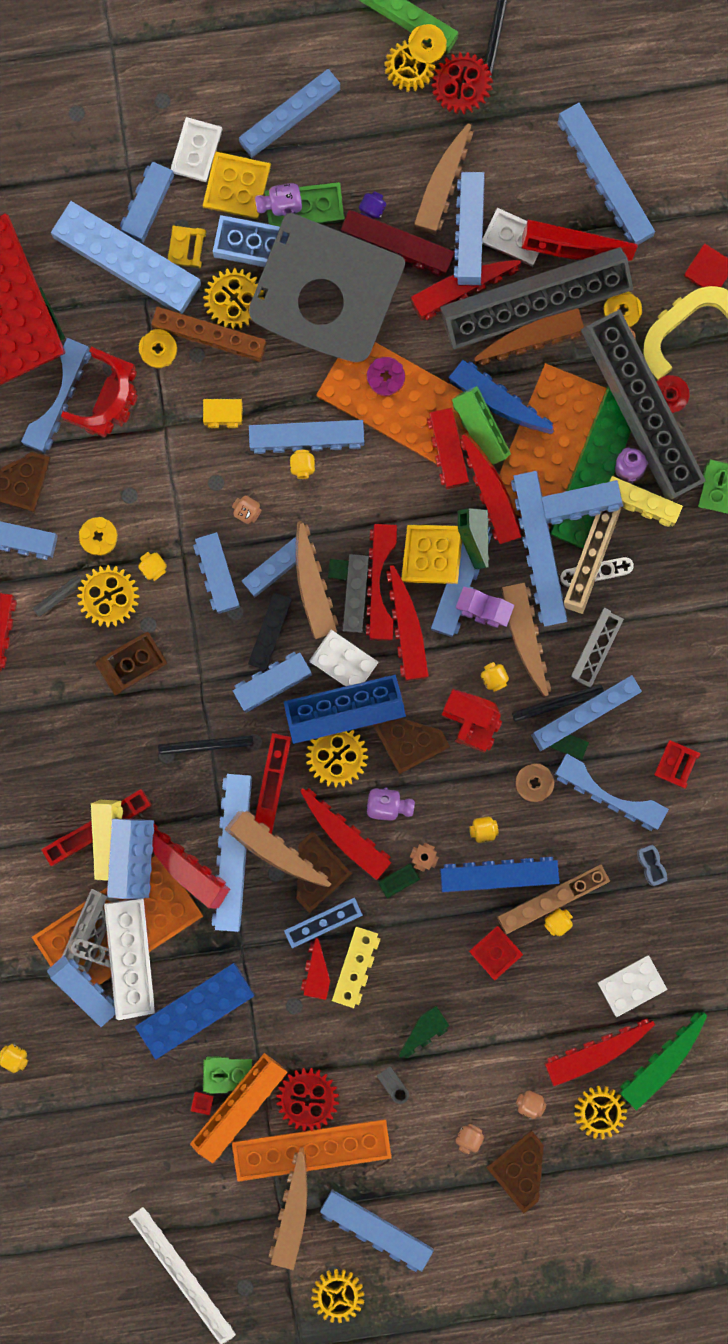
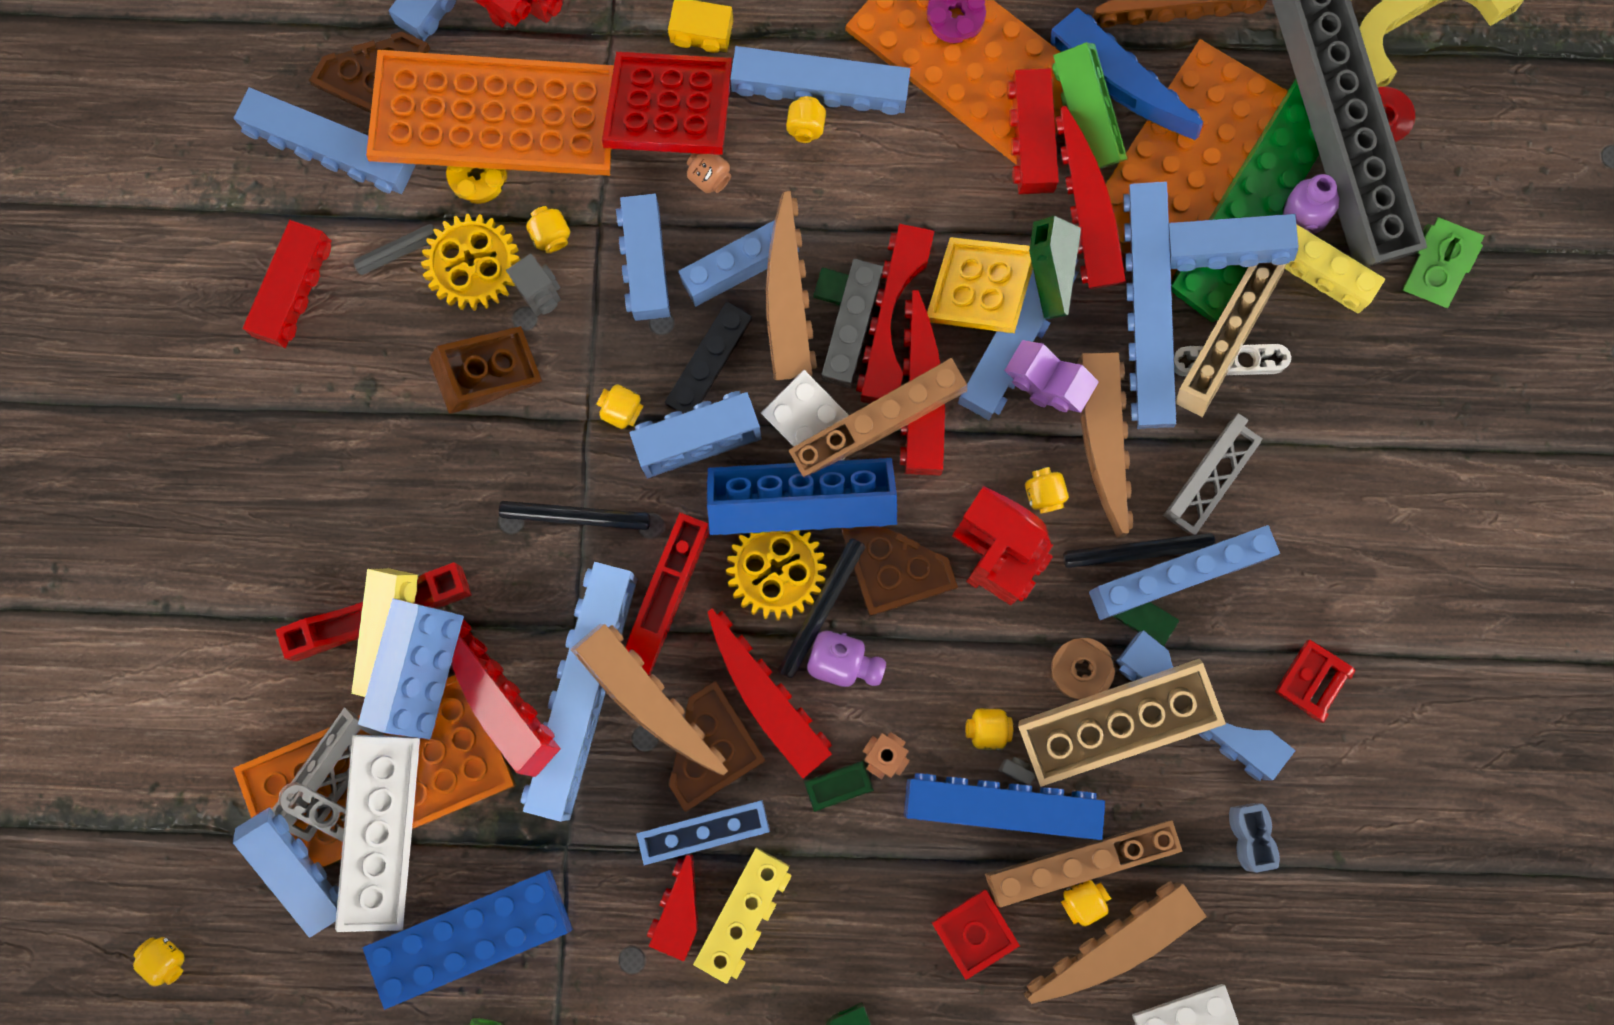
camera: 10 degrees right, 5 degrees down
(103, 497) = (489, 113): none -> orange plate
(153, 605) = (535, 284): none -> dark grey brick
(213, 470) = (668, 103): none -> red plate
(220, 672) = (619, 406): none -> yellow head
(369, 774) = (821, 608): none -> black axle
(383, 653) = (880, 418): none -> medium nougat slope
(505, 851) = (1017, 770): none -> dark grey plate
(560, 812) = (1121, 722): none -> tan brick
(585, 942) = (1124, 944): none -> medium nougat slope

